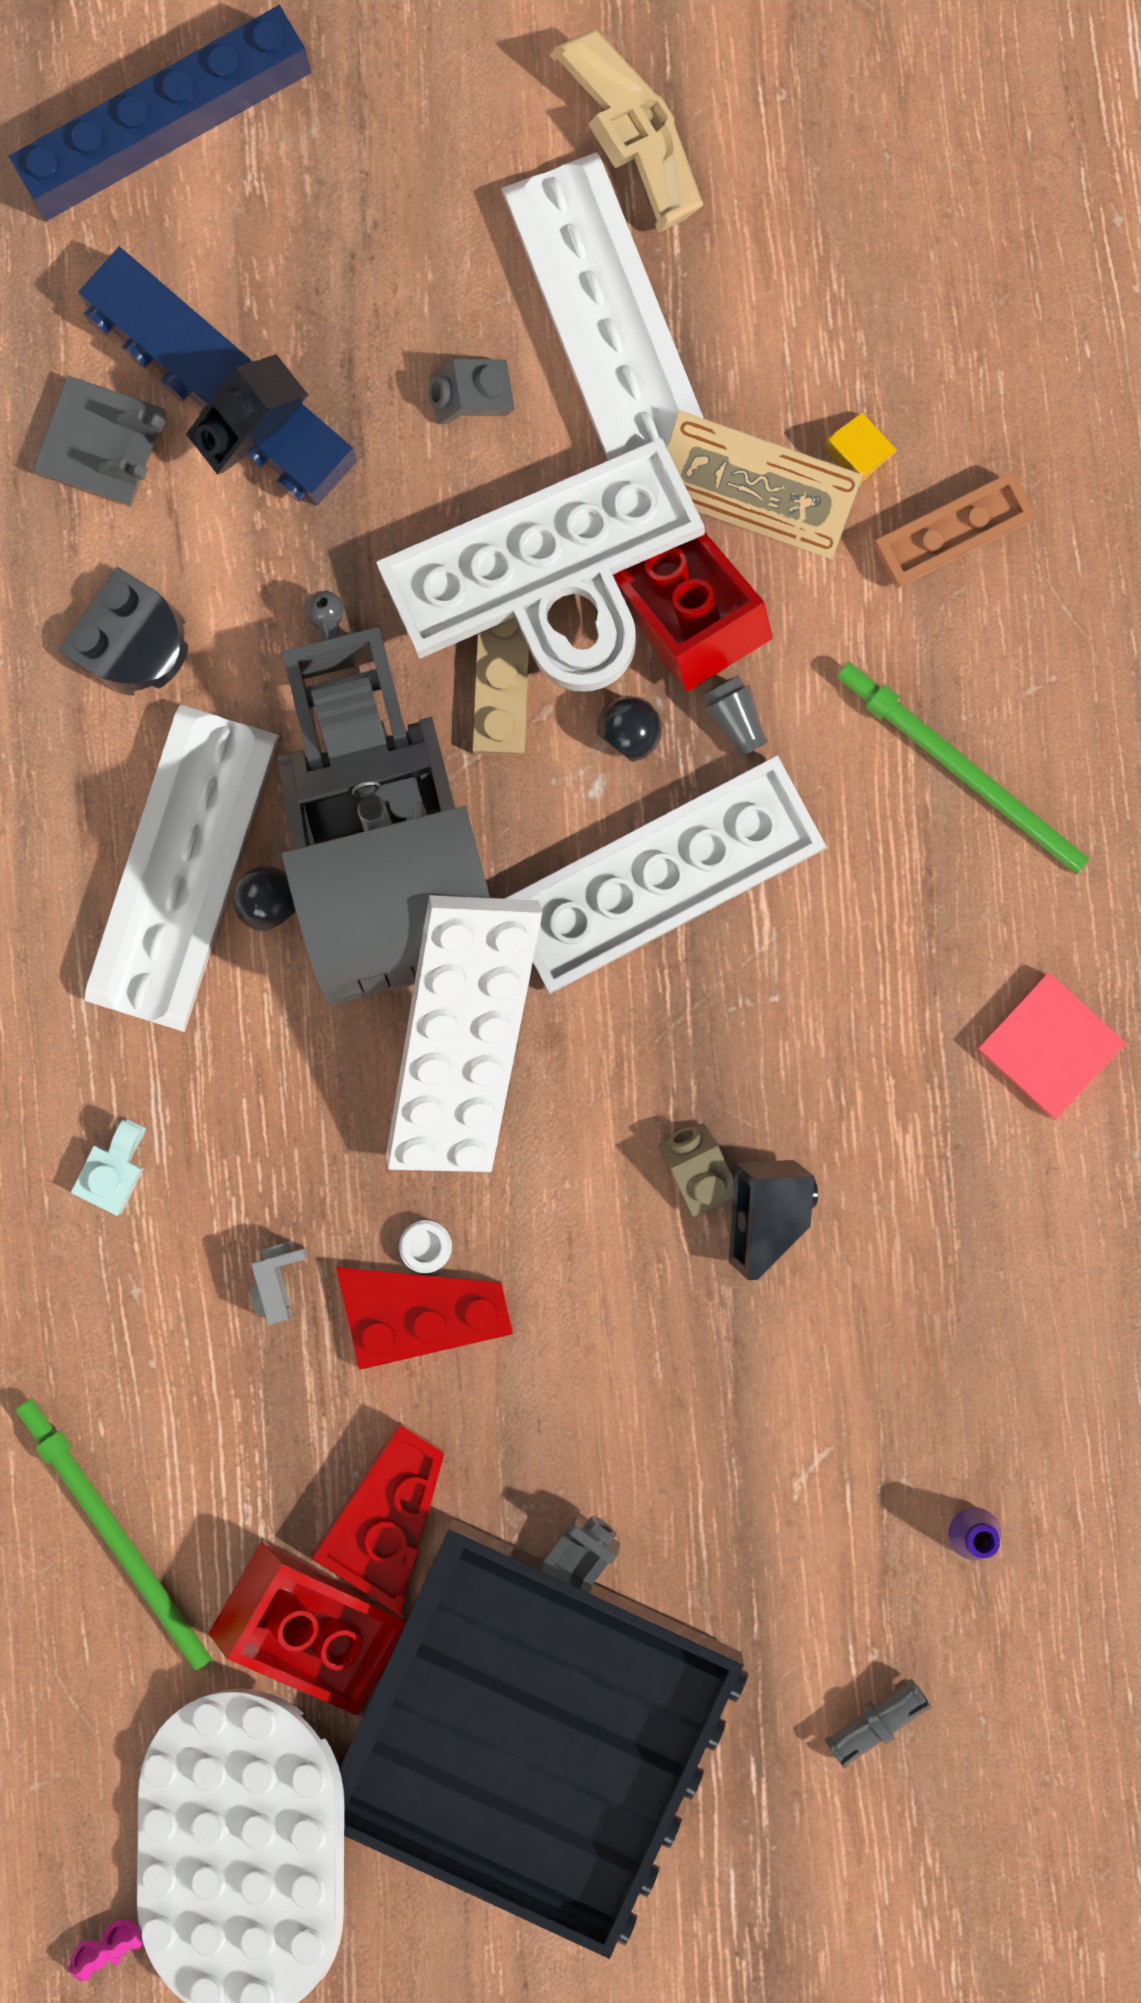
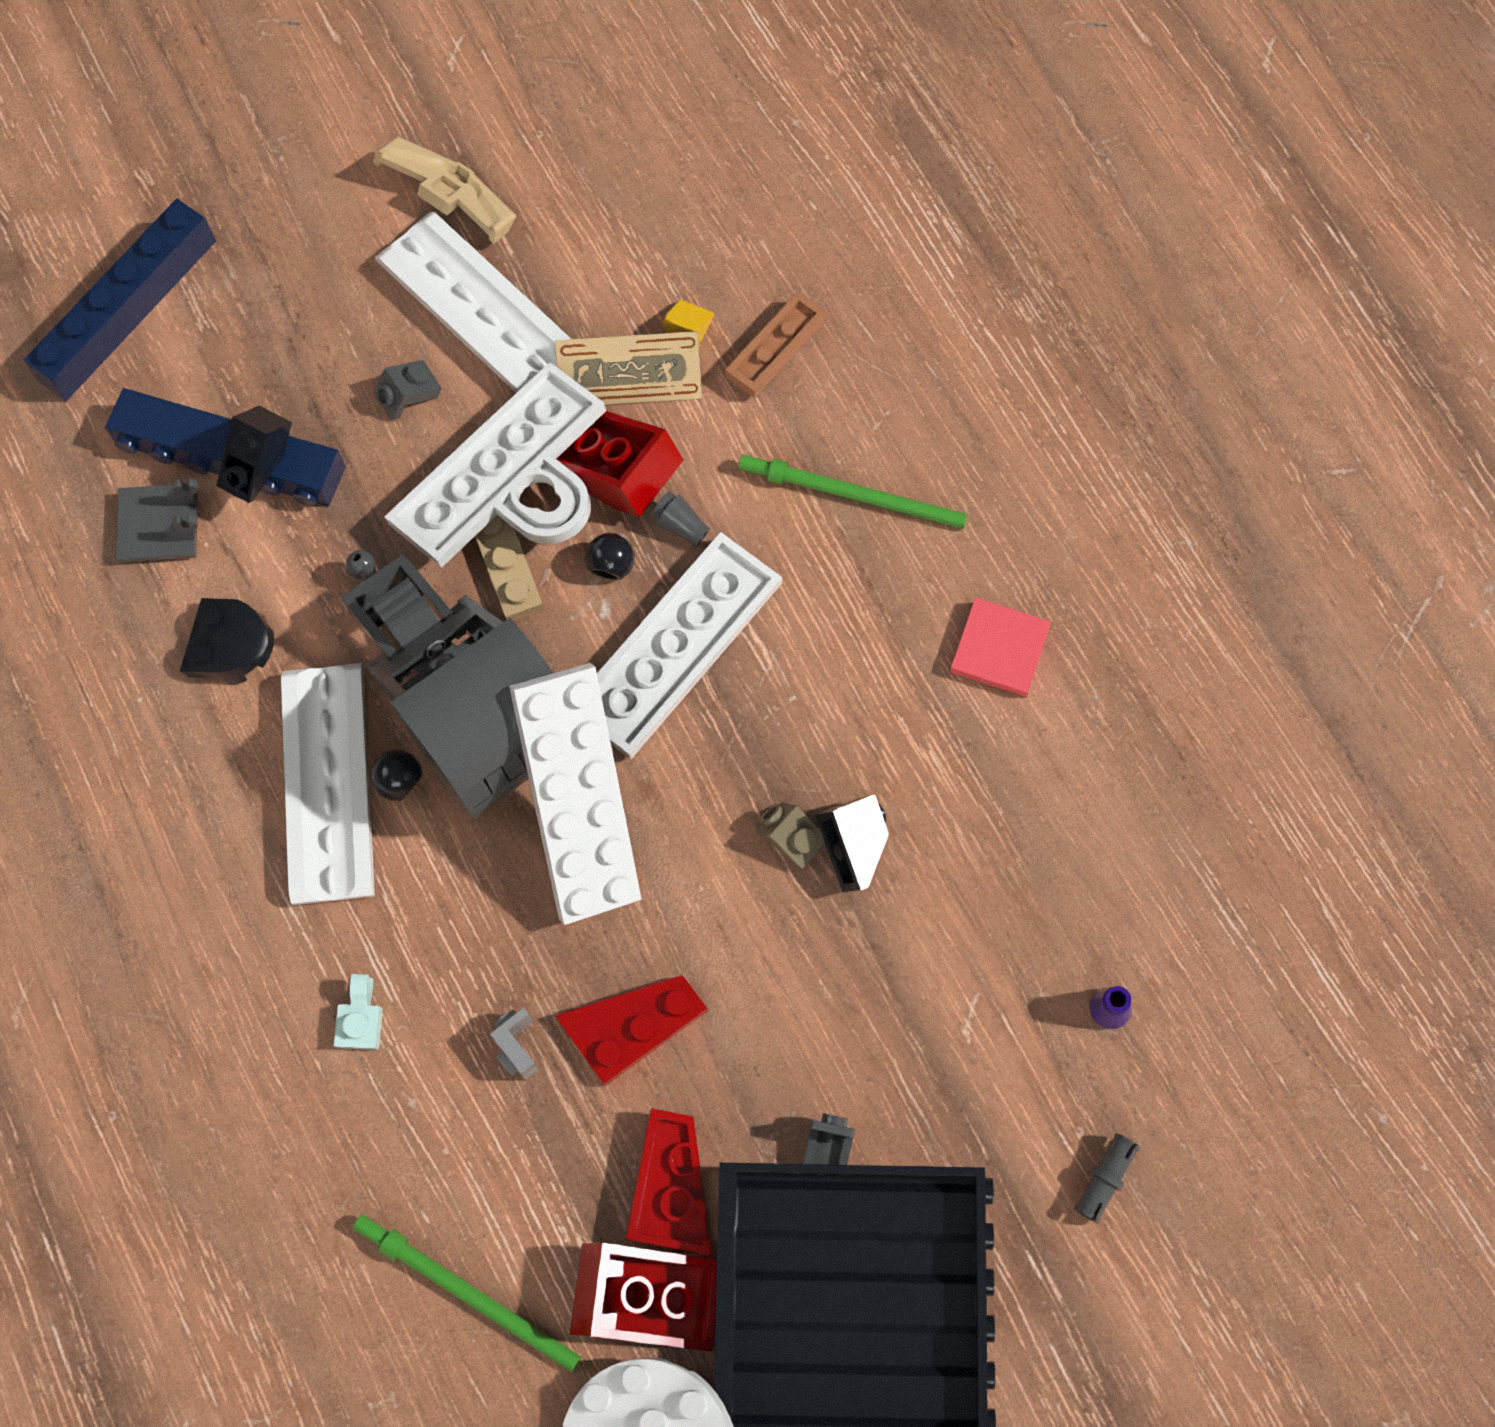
camera: 20 degrees left, 15 degrees down
(425, 1246) = (615, 974): white tile -> none

